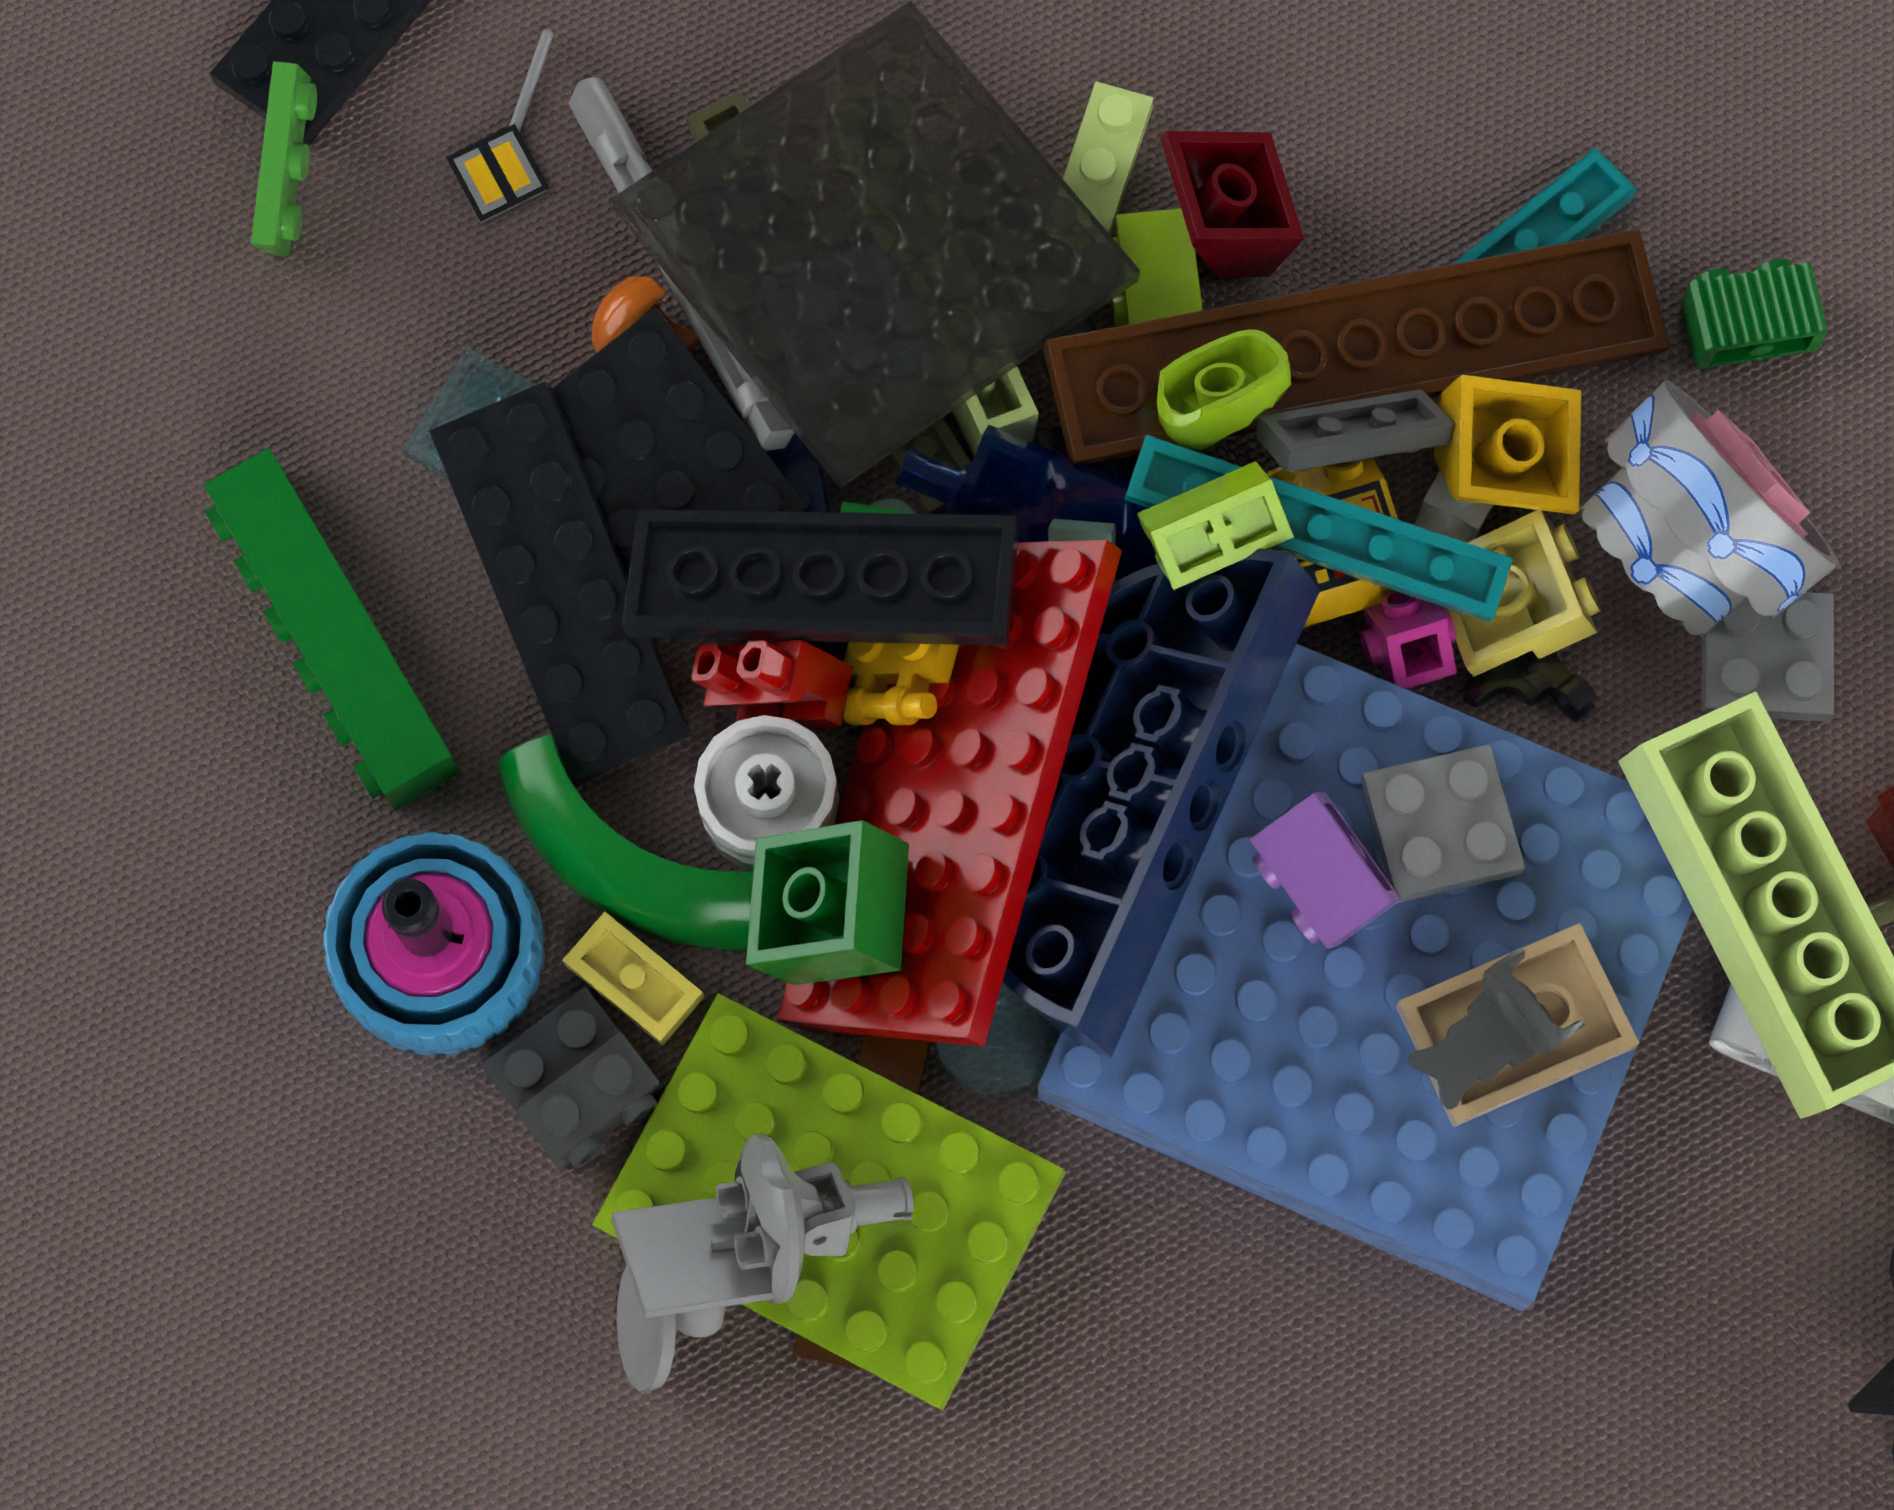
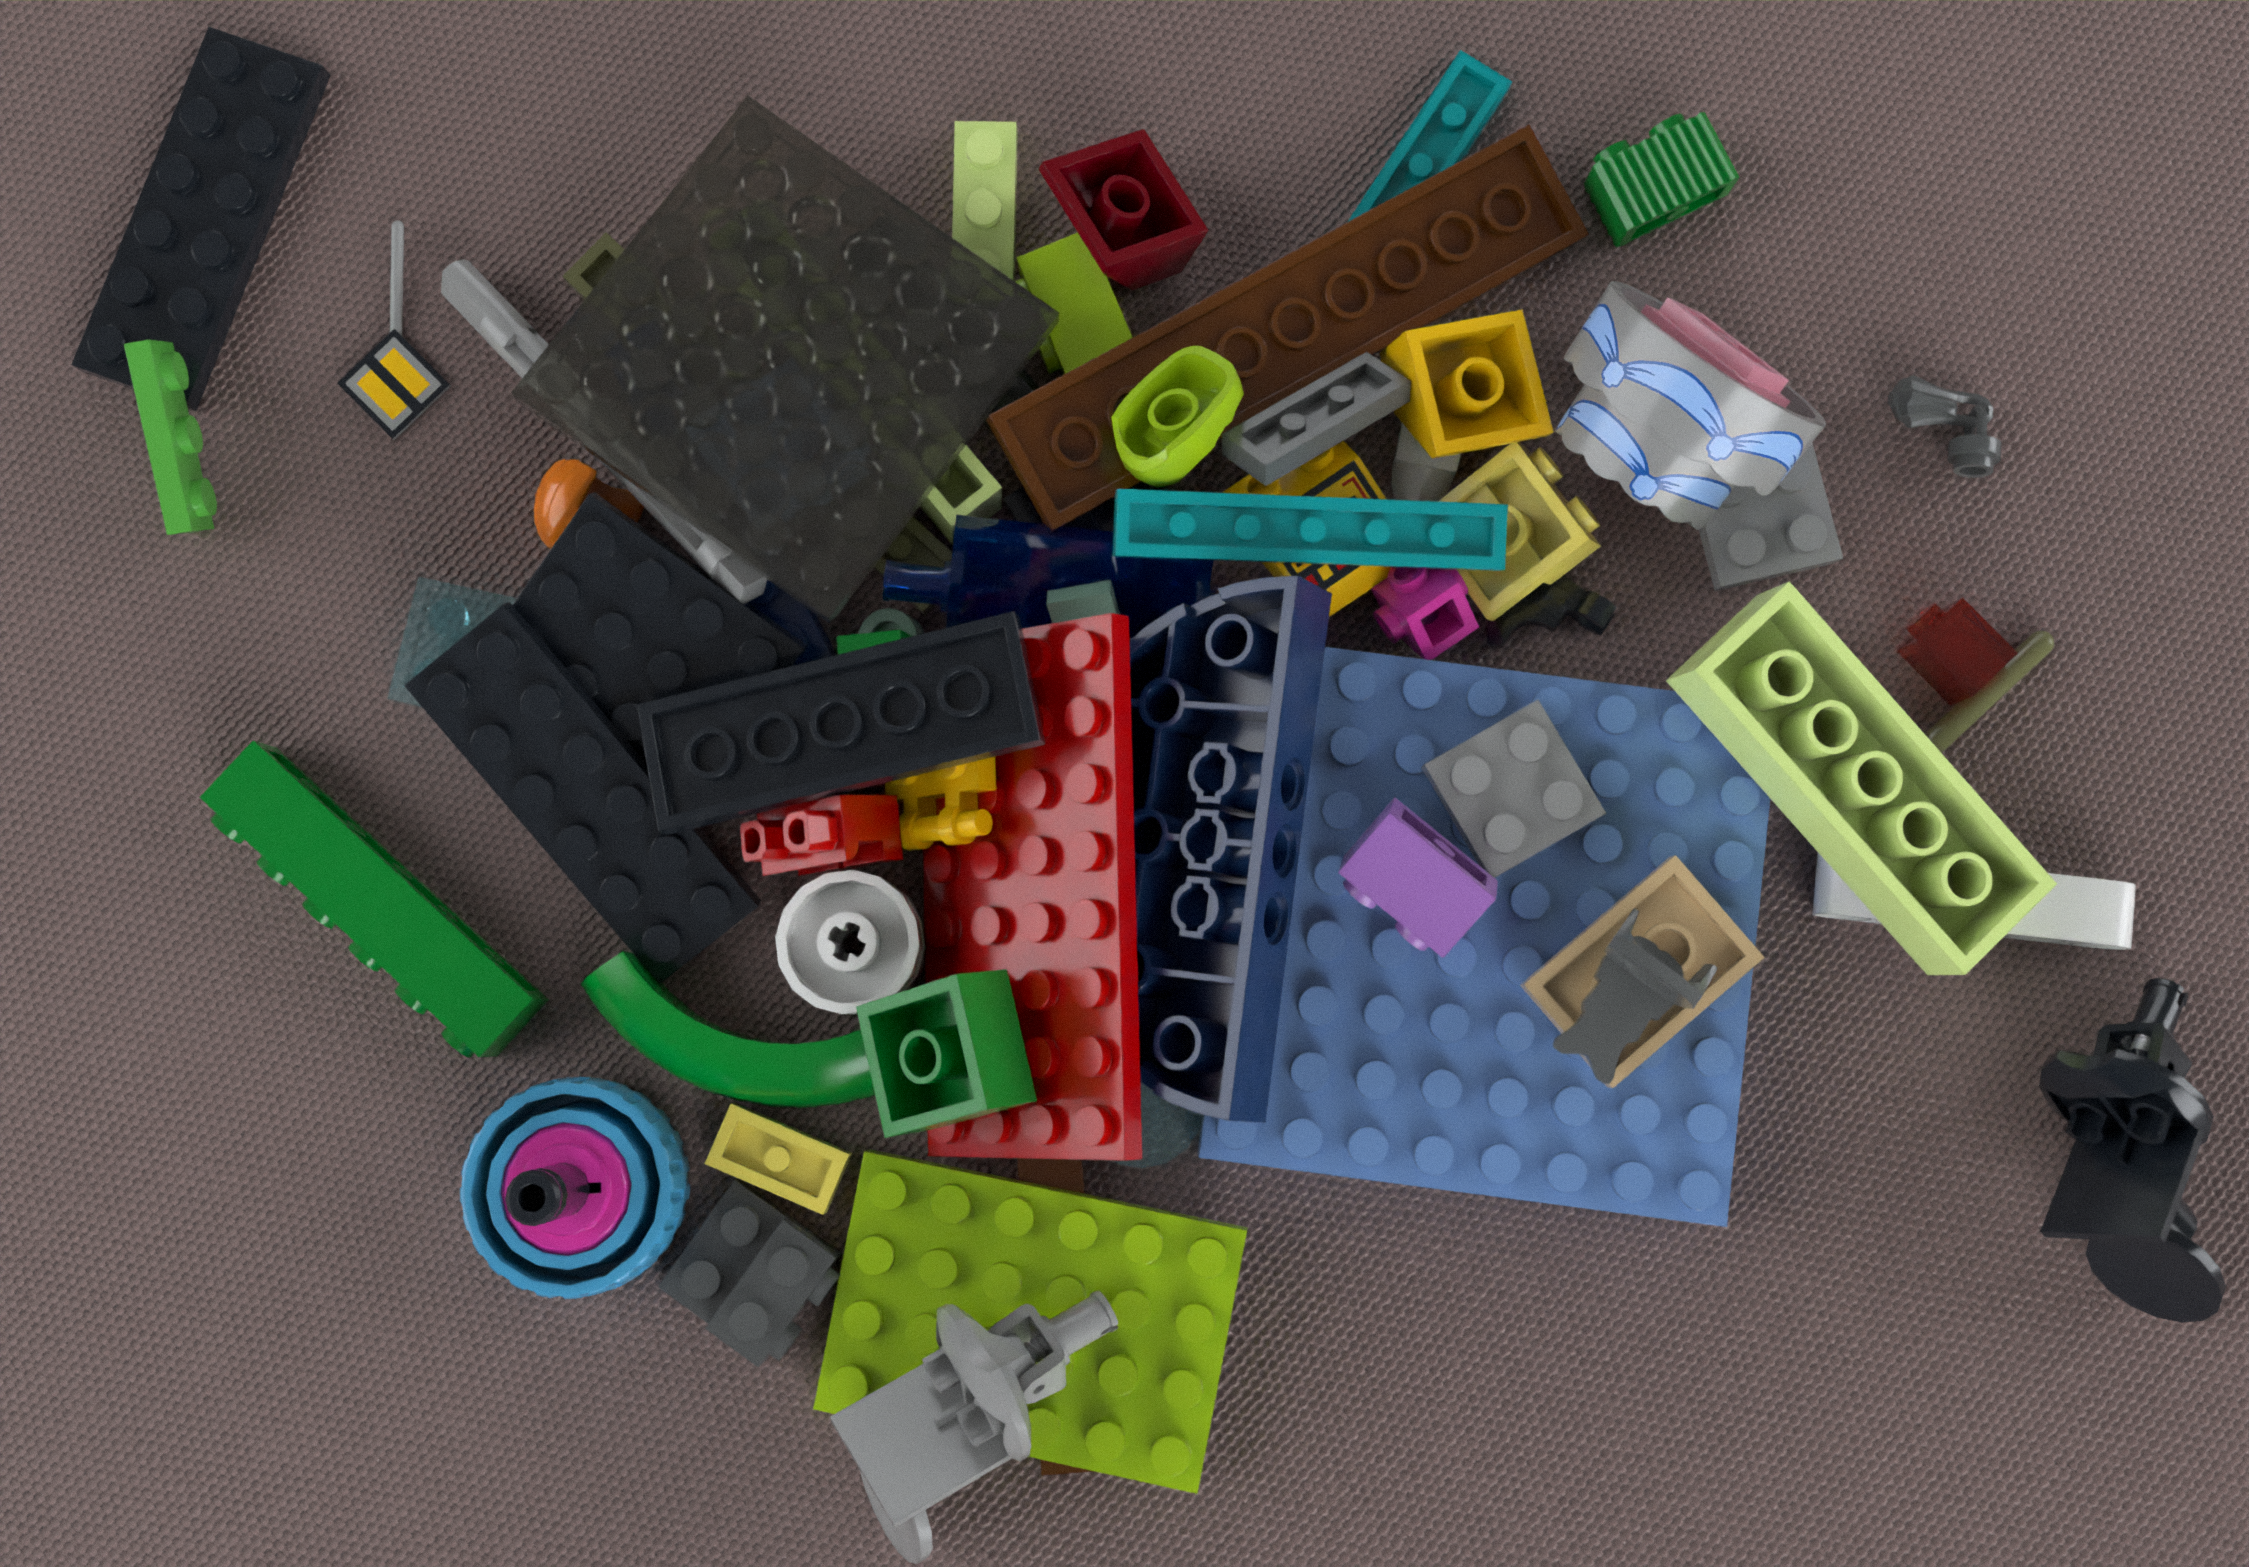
camera: 15 degrees left, 10 degrees up
(1215, 524) = (1213, 563): lime hinge -> none

